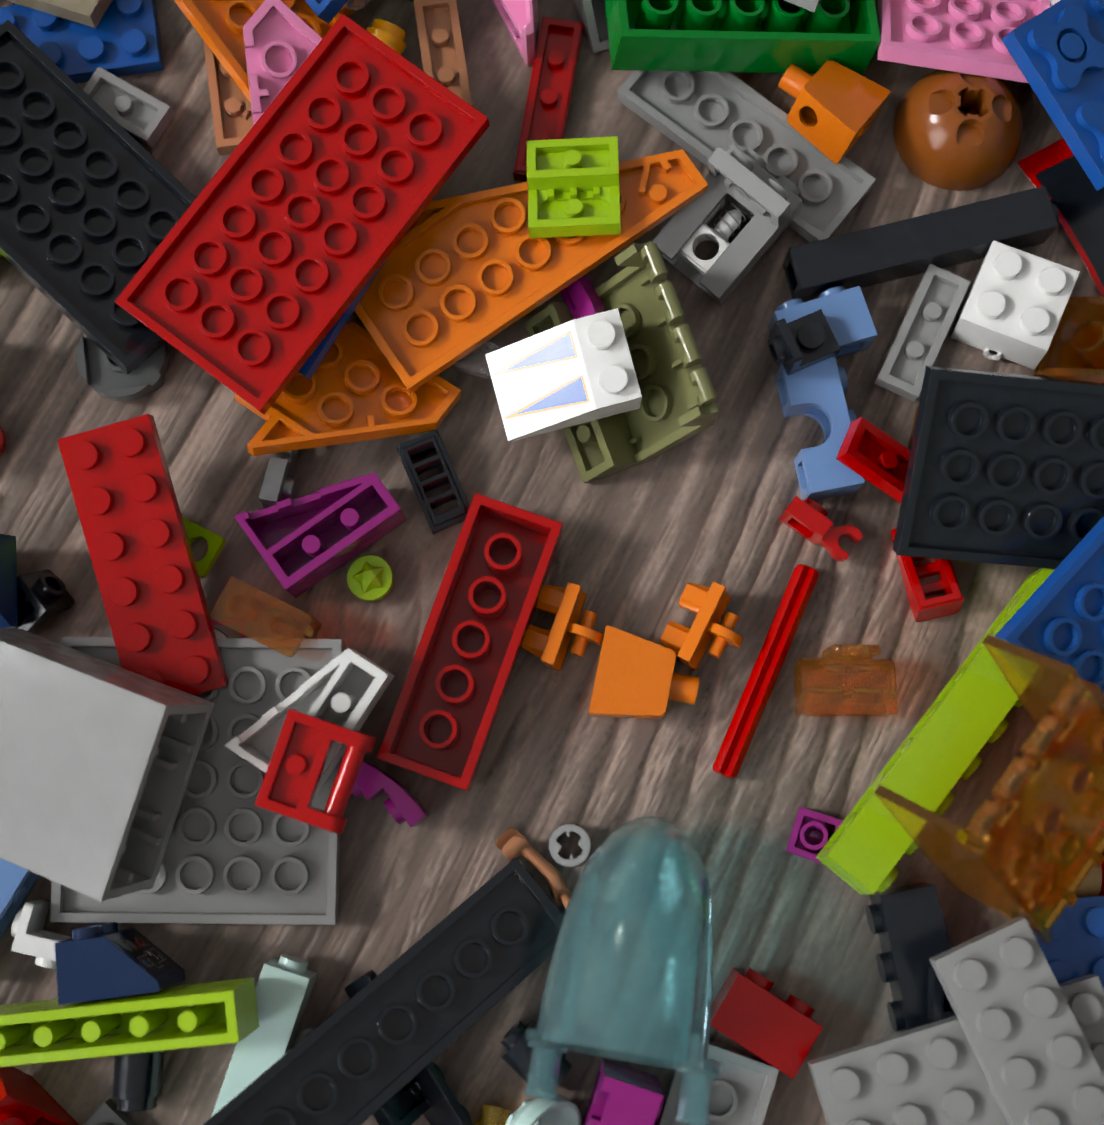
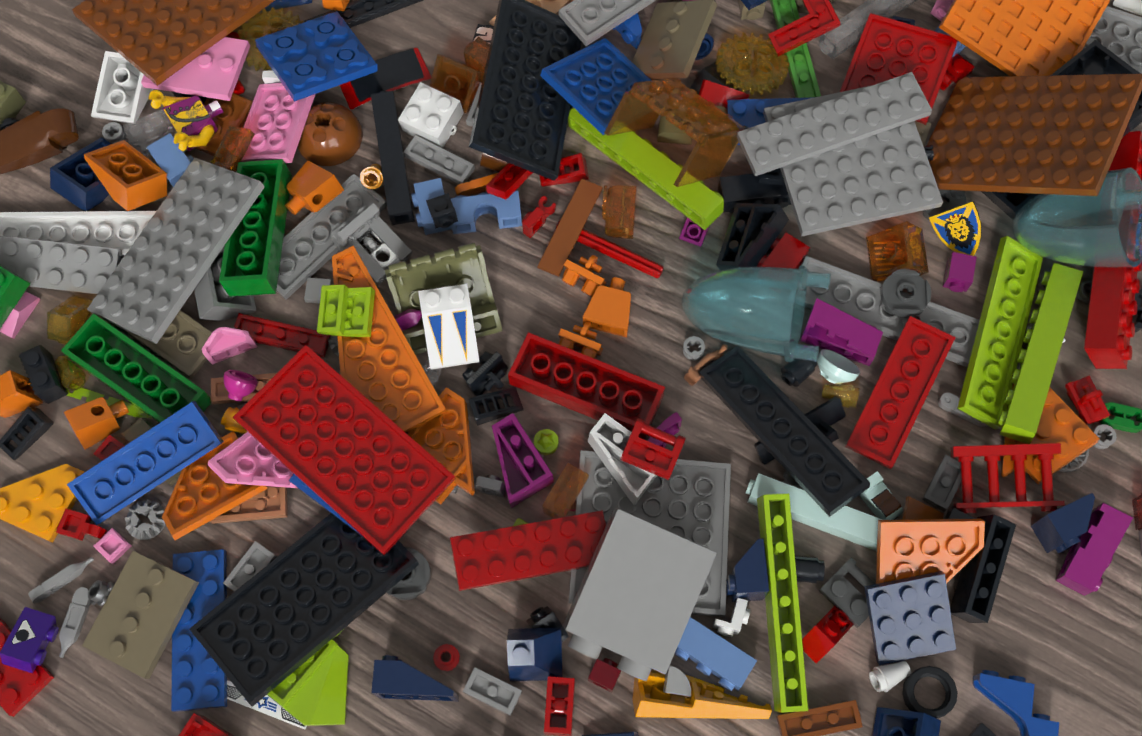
camera: 85 degrees left, 10 degrees down
(439, 34) = (239, 384): none -> dark pink brick
(488, 463) = (488, 375): none -> black hips
(637, 142) = (313, 289): none -> light grey tile
(801, 590) = (569, 227): none -> dark orange piece
(804, 950) = (750, 234): none -> black wedge
(868, 209) = (370, 180): none -> light orange cone
(873, 402) = (474, 186): none -> orange piece

